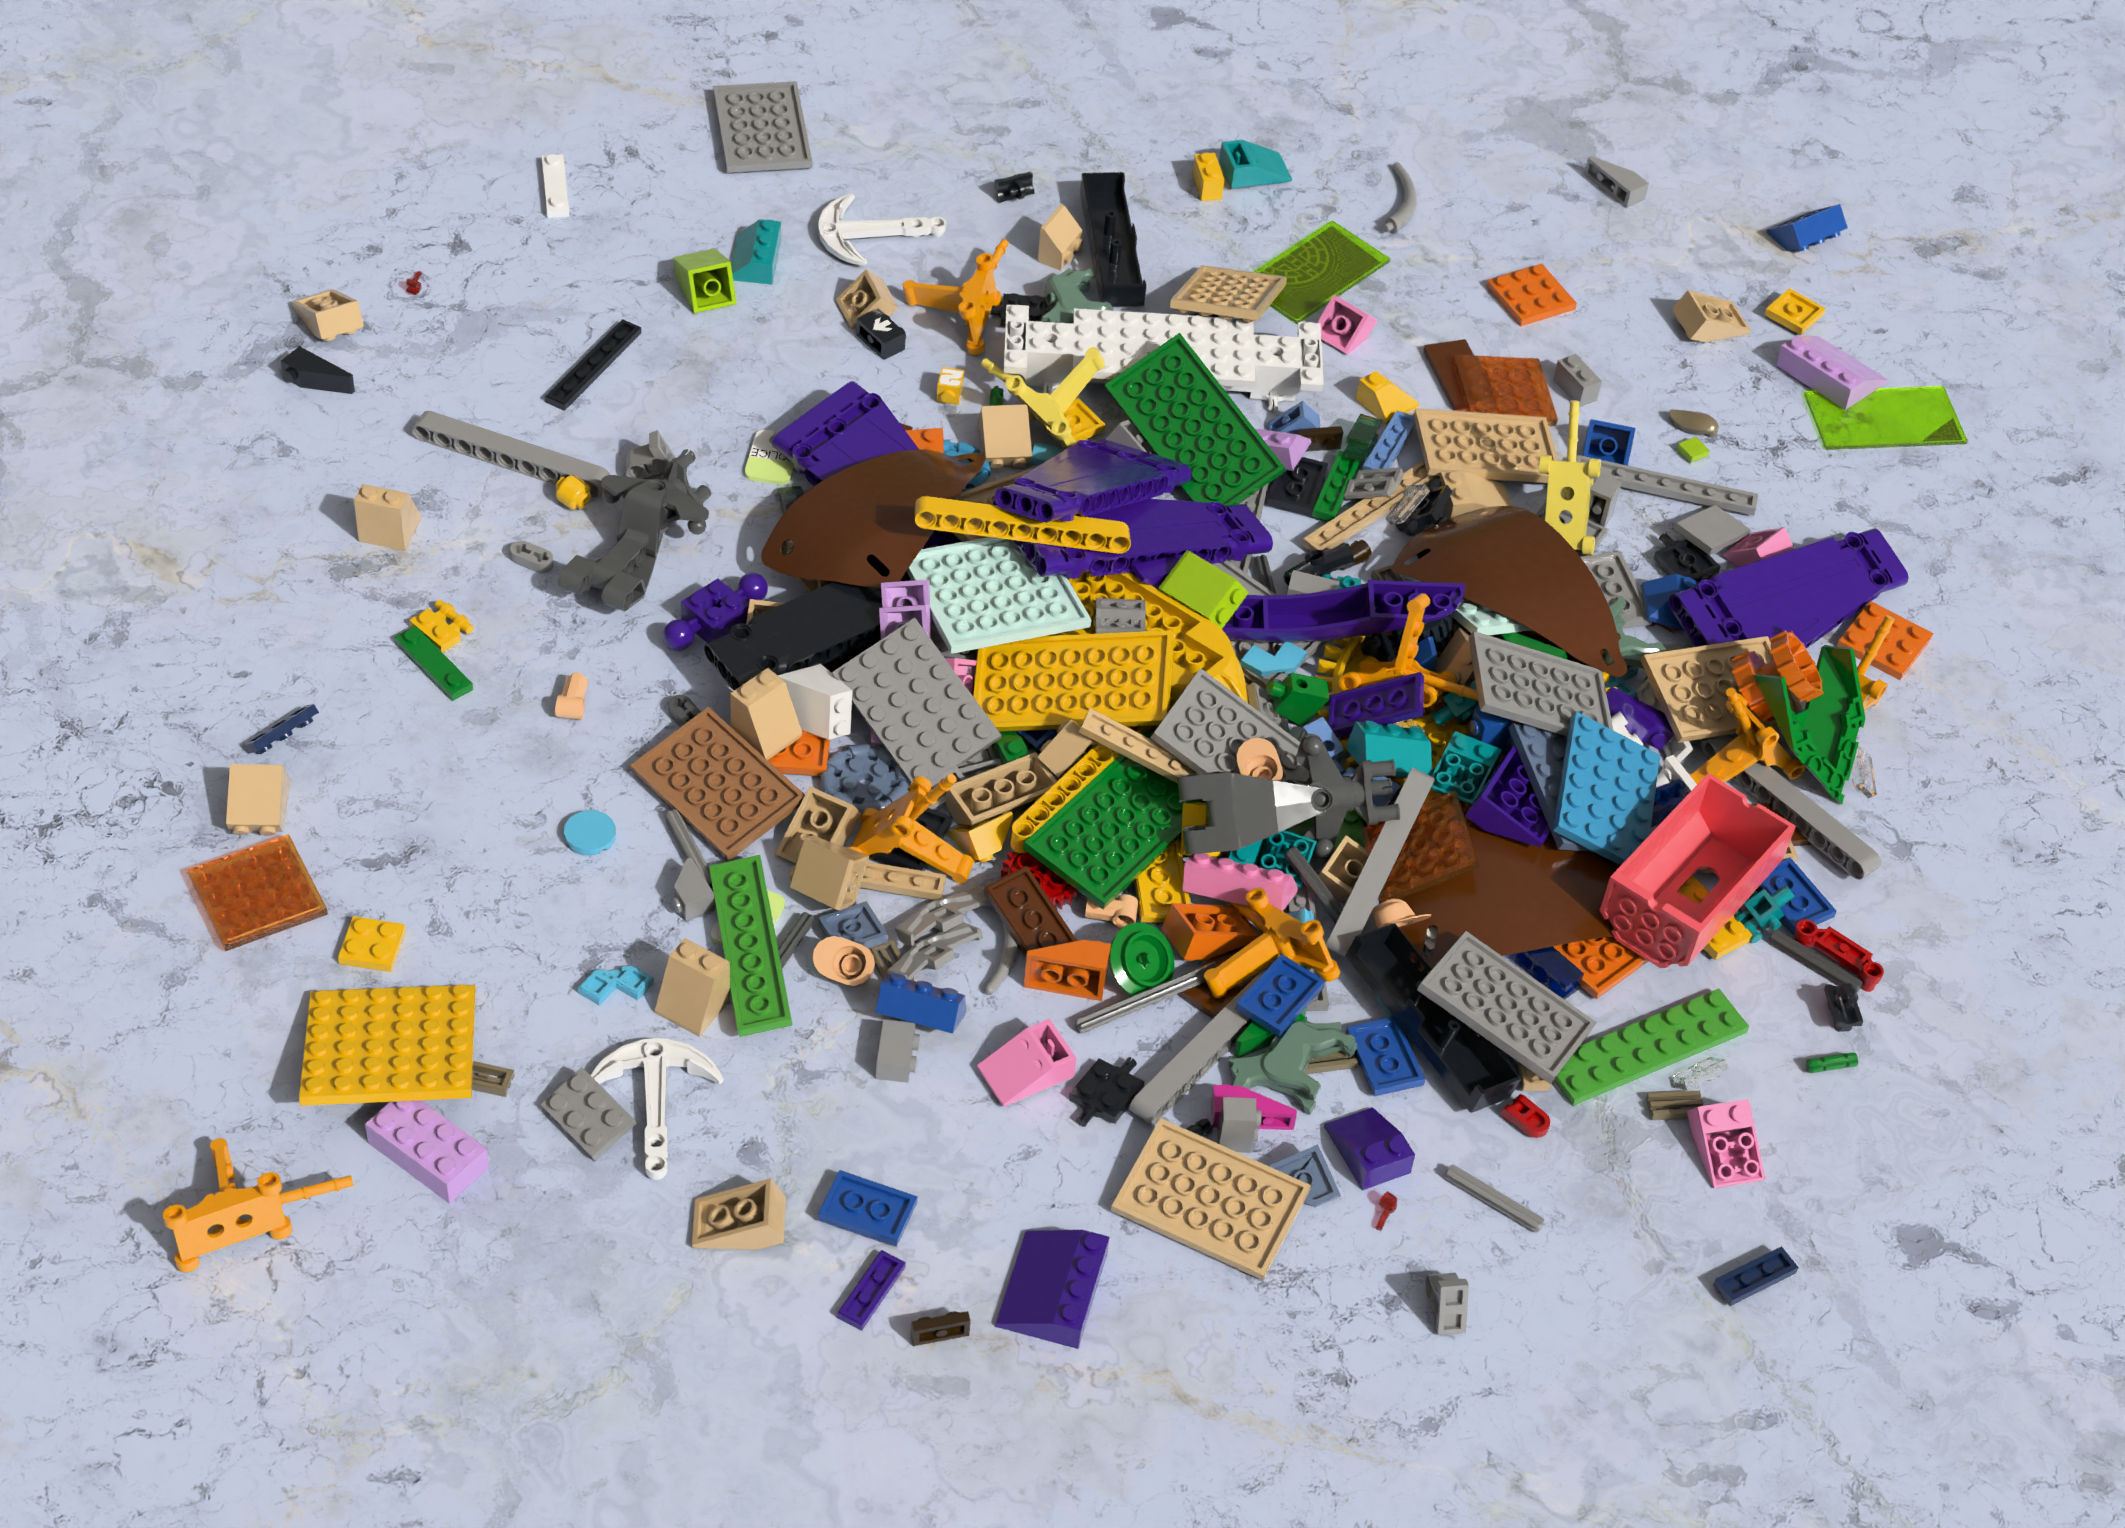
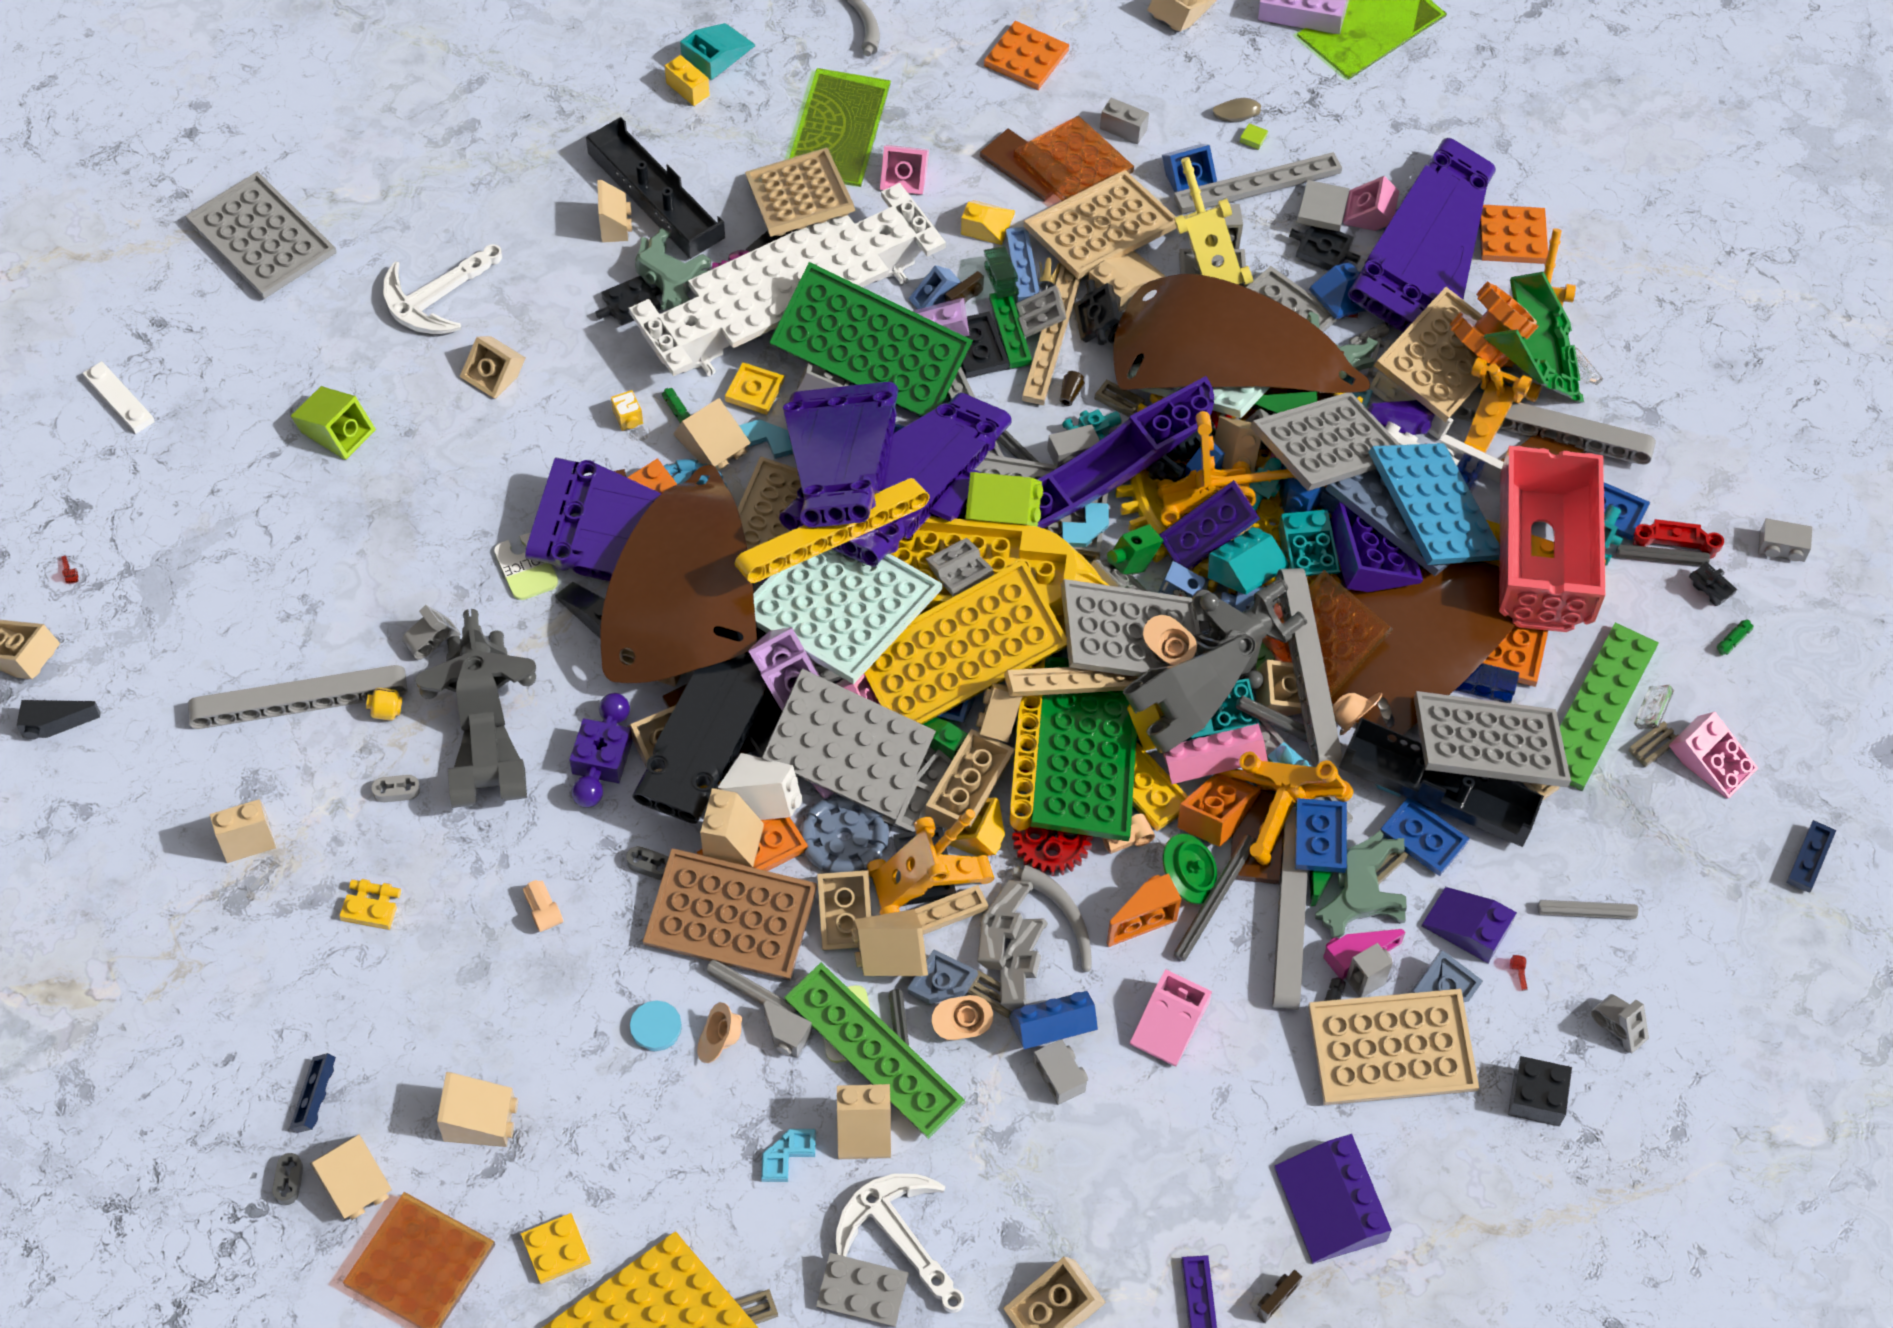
camera: 30 degrees left, 10 degrees up
(211, 778) = (282, 1177): none -> dark grey beam
(390, 807) = (476, 1111): none -> tan slope
(434, 663) = (392, 944): green plate -> none
(593, 365) = (298, 563): black tile -> none
(638, 864) = (719, 1033): none -> light nougat piece
(757, 252) = (357, 367): teal slope -> none
(867, 1208) = (1144, 1227): blue plate -> none
(881, 333) = (528, 391): black brick -> none
(971, 300) = (586, 317): light orange piece -> none
(1014, 187) = (532, 177): black hips -> none
(1027, 911) = (1077, 883): reddish brown tile -> none
(1050, 409) = (736, 391): light yellow piece -> none
(1106, 1091) = (1243, 1001): black plate -> none
(1319, 1310) = (1540, 1091): none -> black brick
(1323, 562) = (1054, 414): black piece -> none
(1402, 509) = (1080, 315): clear plate -> none
(1404, 461) = (1046, 279): none -> pearl gold piece
(1533, 1122) = (1570, 824): red plate -> none
(1951, 1010) = (1785, 540): none -> light grey brick

